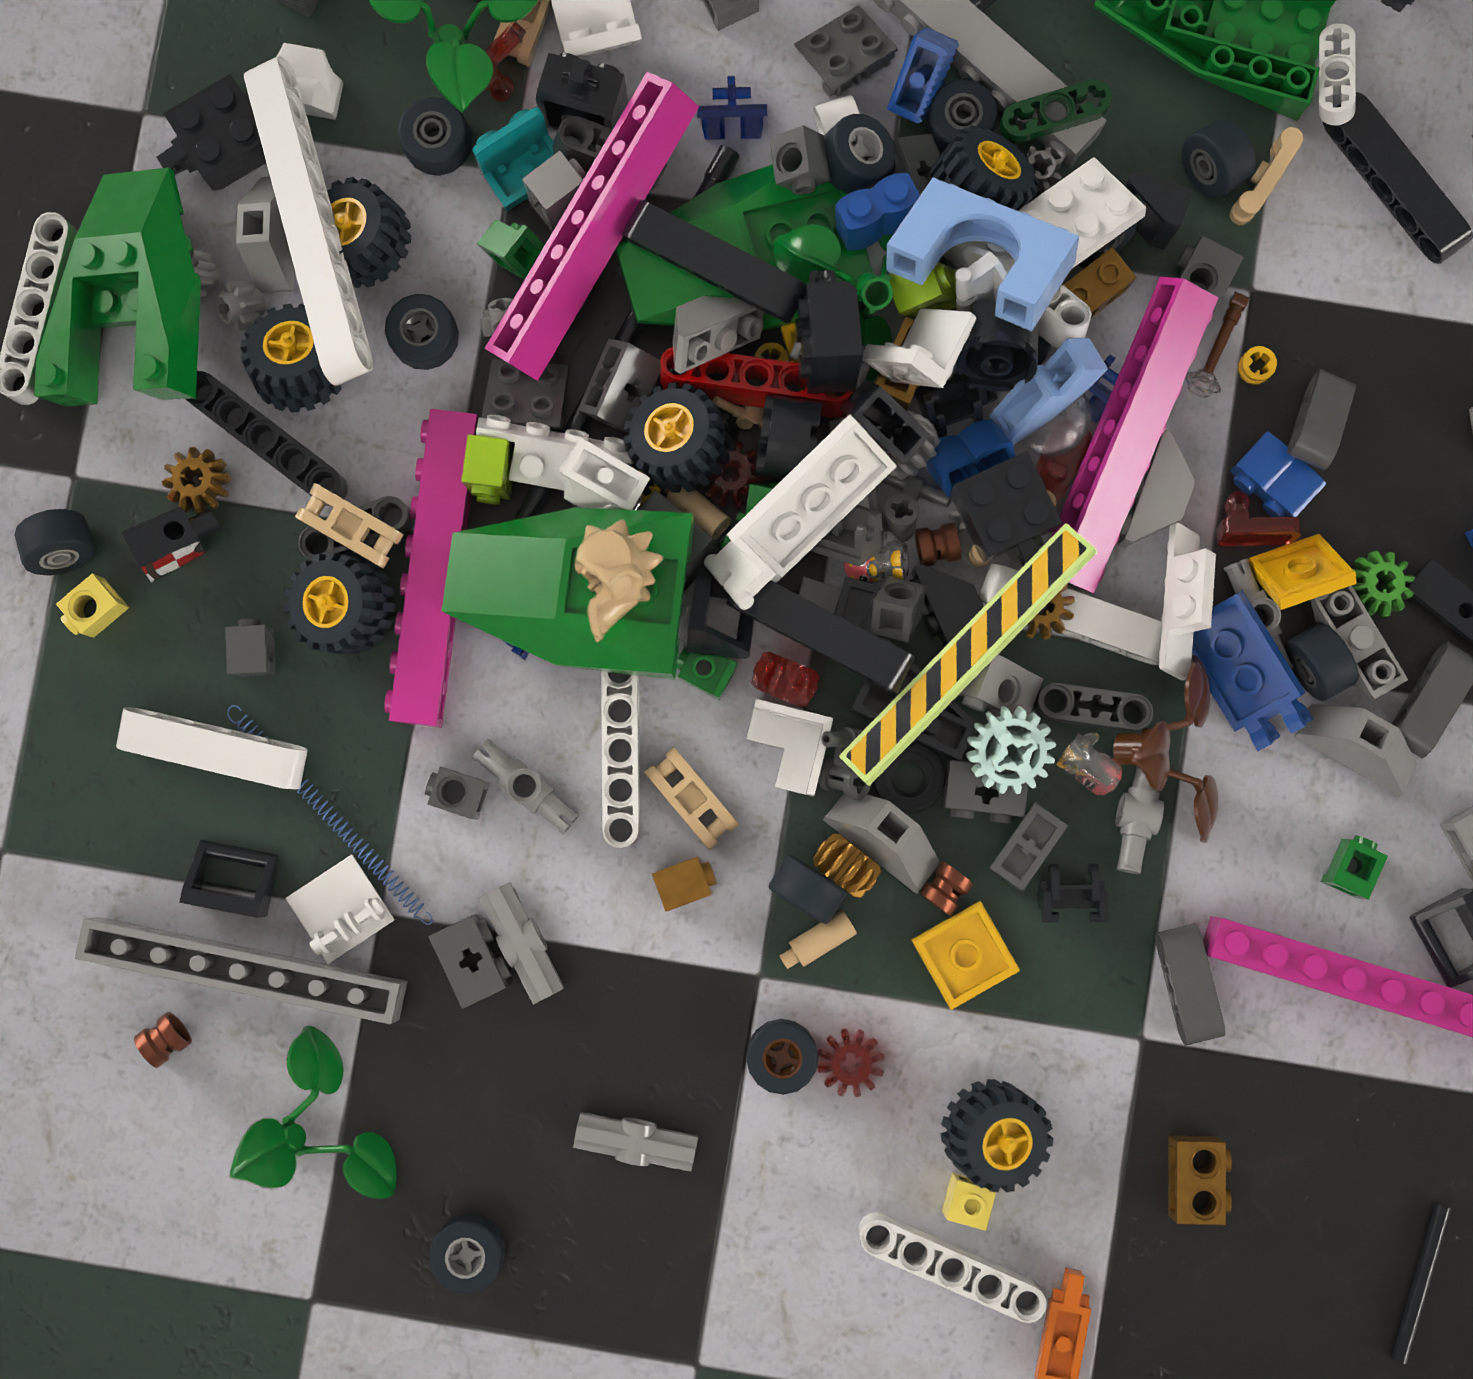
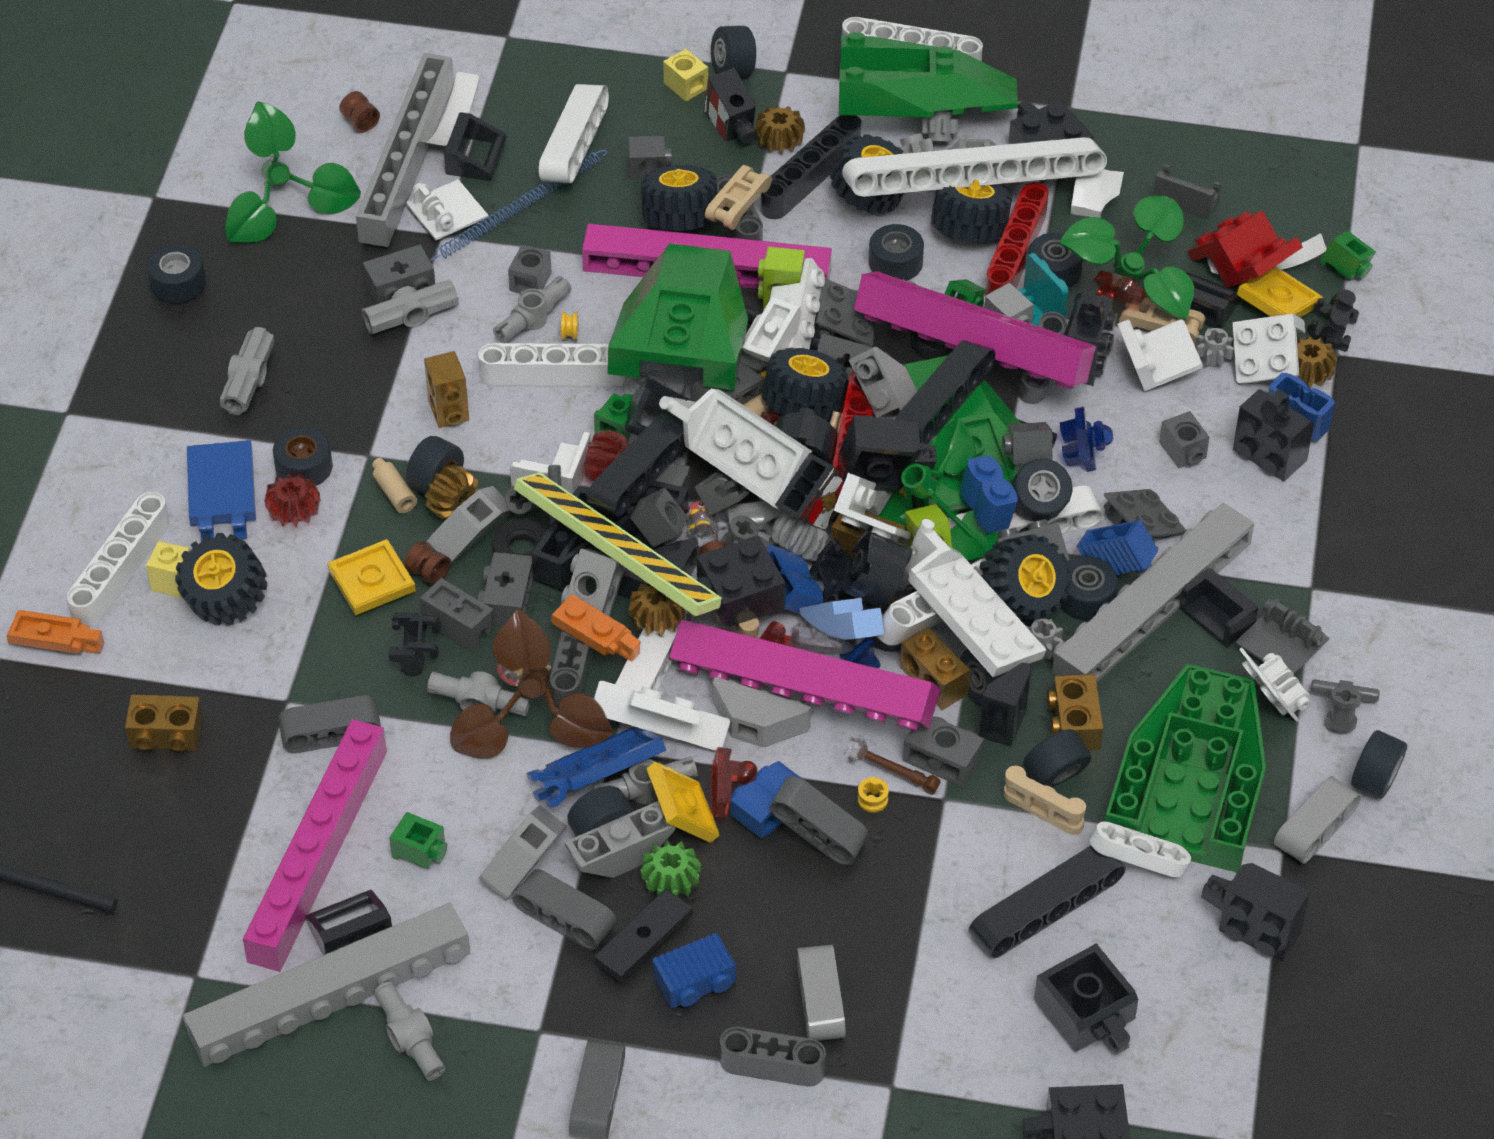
camera: 90 degrees right, 35 degrees down
(158, 912) = (459, 101): none -> white sticker
(419, 193) = (1018, 235): none -> red beam
(551, 737) = (569, 325): none -> yellow bush
(616, 572) = (681, 300): tan head -> none
(691, 798) = (515, 409): tan plate -> none
(823, 1154) = (221, 486): none -> blue tile
(953, 216) = (942, 569): light blue arch -> none
(997, 755) = (548, 570): light aqua gear -> none
(1067, 678) = (595, 628): none -> orange hinge
(1085, 112) = (1085, 645): dark green beam -> none
(1139, 126) = (1077, 708): none -> pearl gold brick

